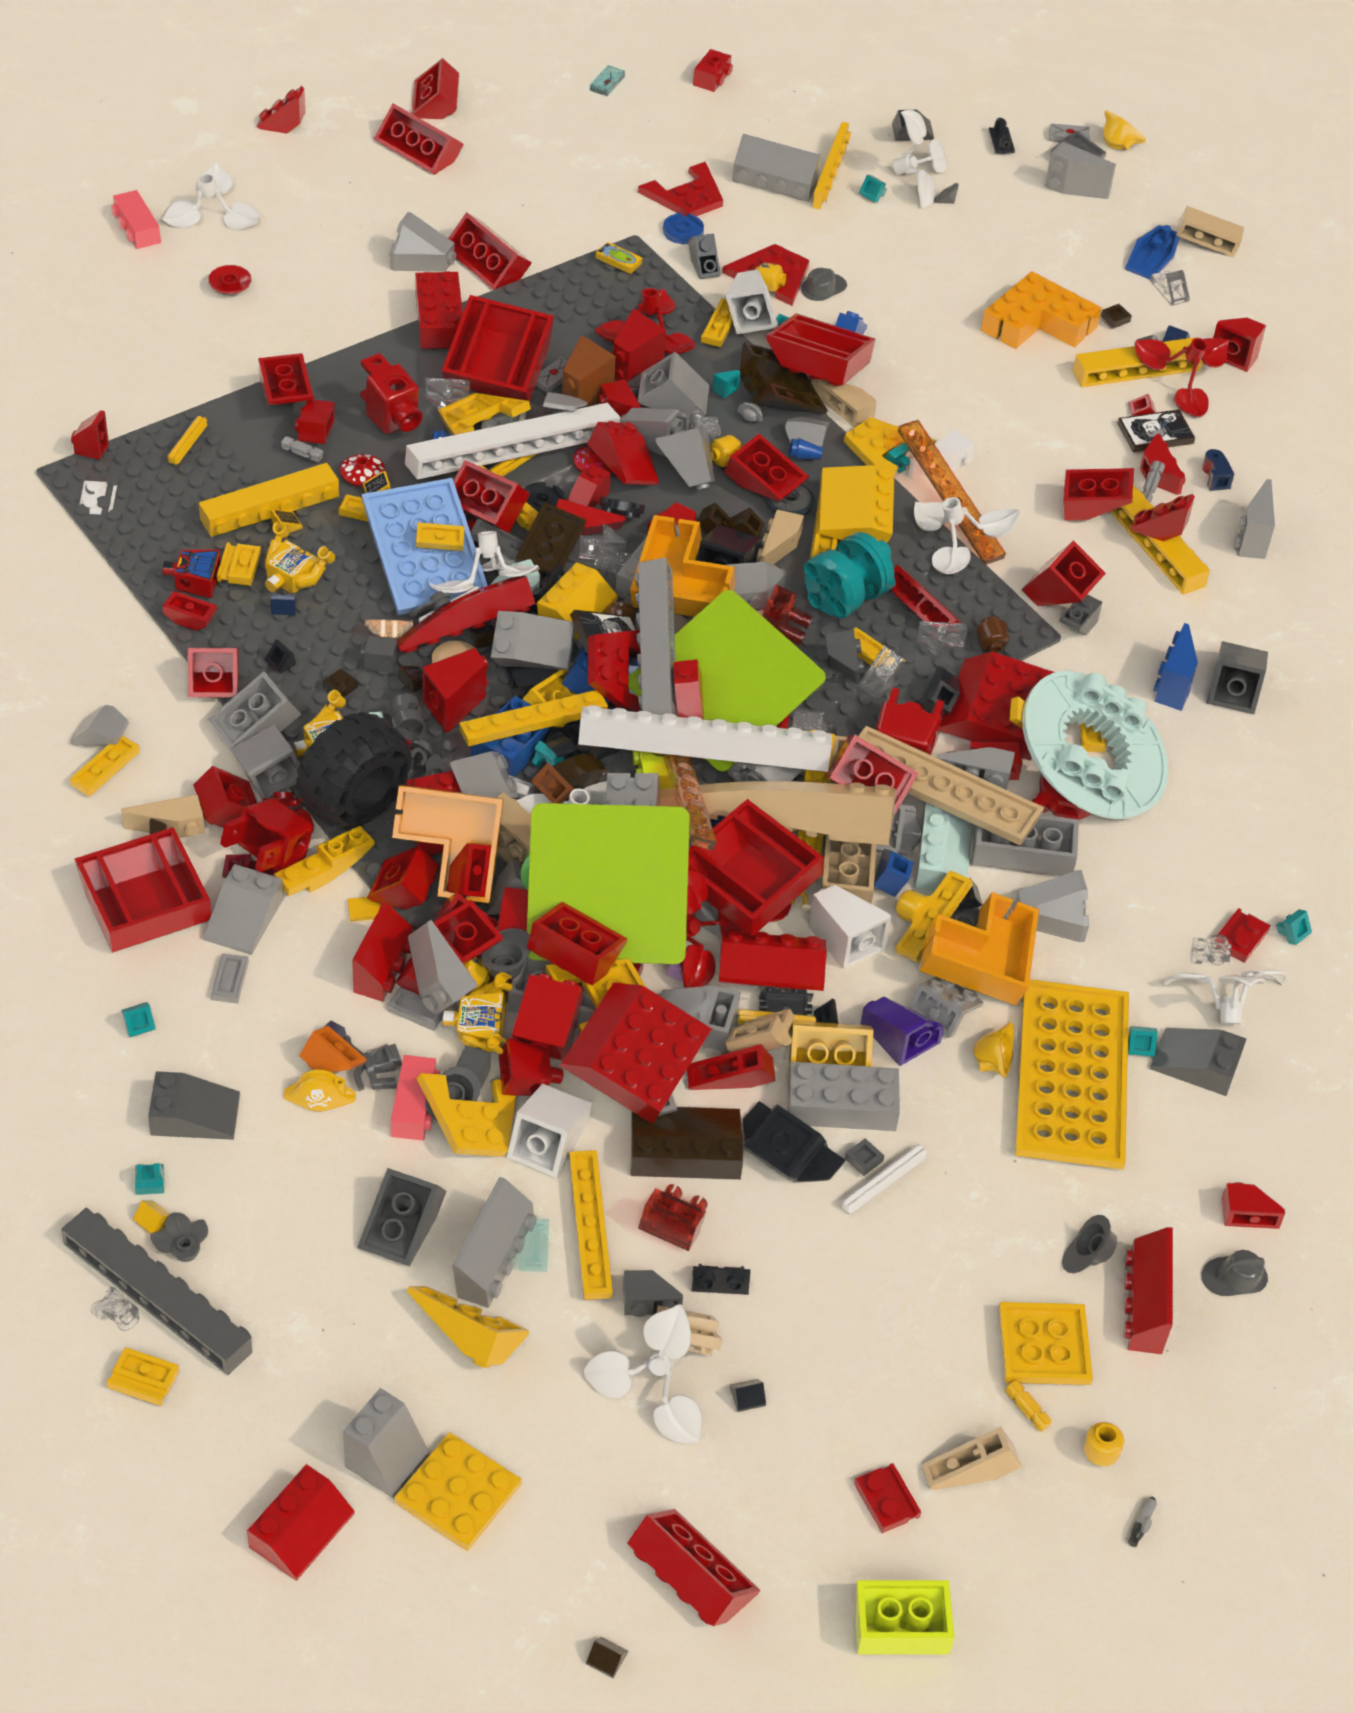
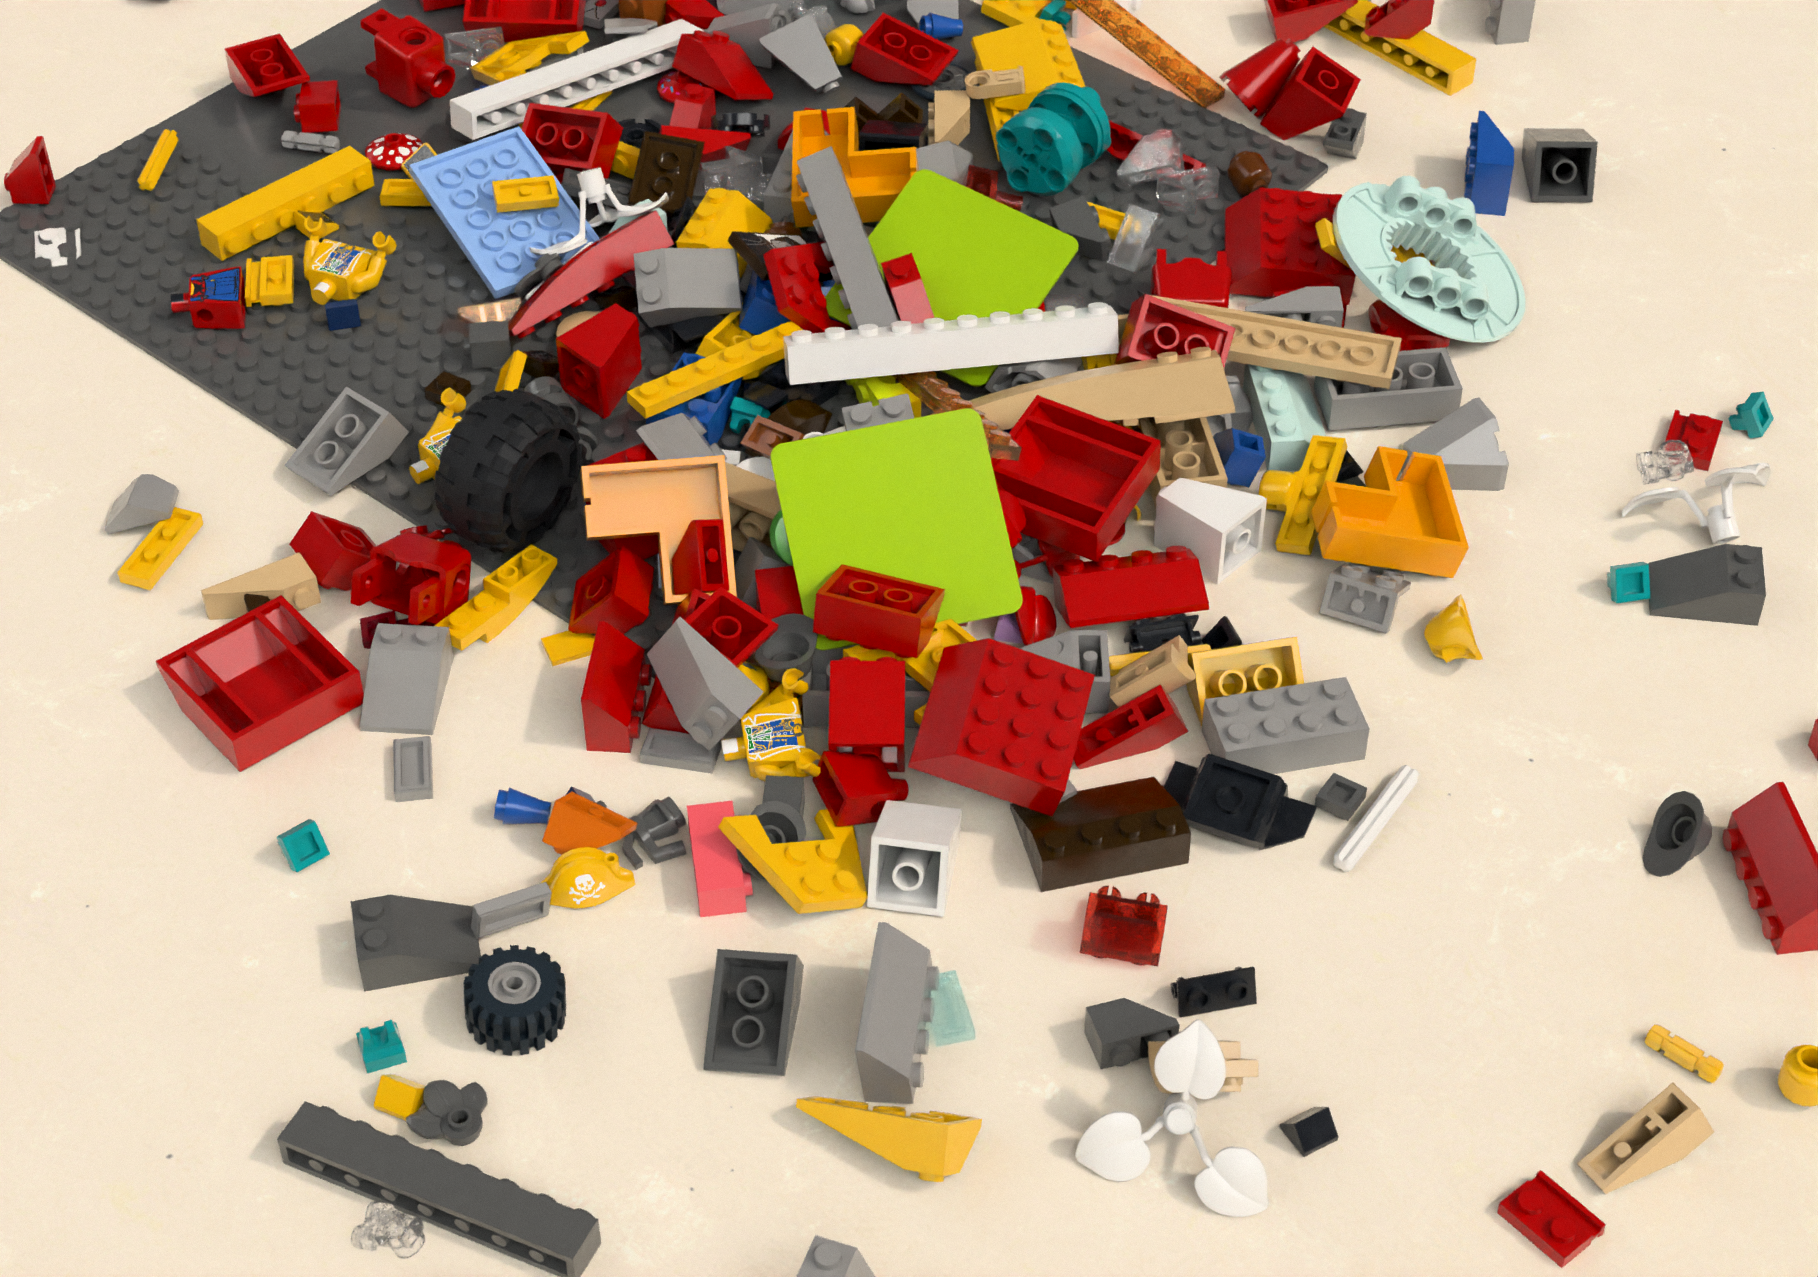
camera: 10 degrees left, 5 degrees down
(188, 611) = (220, 345): red slope -> none
(213, 672) = (275, 406): slope -> none
(245, 1168) = (515, 1000): none -> black wheel
(262, 1102) = (510, 910): none -> light grey tile
(267, 762) = (384, 495): light grey slope -> none
(280, 657) = (359, 374): black slope -> none
(292, 1026) = (520, 808): none -> blue cone
(383, 689) = (511, 372): none -> yellow tile
(590, 1225) = (1014, 965): yellow plate -> none
(824, 516) = (995, 83): none -> tan piece
(900, 1029) = (1327, 633): dark purple slope -> none
(921, 605) = (1152, 156): none -> clear slope
(932, 516) = (1164, 107): white plant -> none
(943, 687) = (1214, 238): black slope -> none
(1032, 551) = (1262, 75): none -> red cone
(1045, 1343) = (1672, 970): yellow plate -> none
(1114, 1066) = (1605, 618): yellow piece -> none

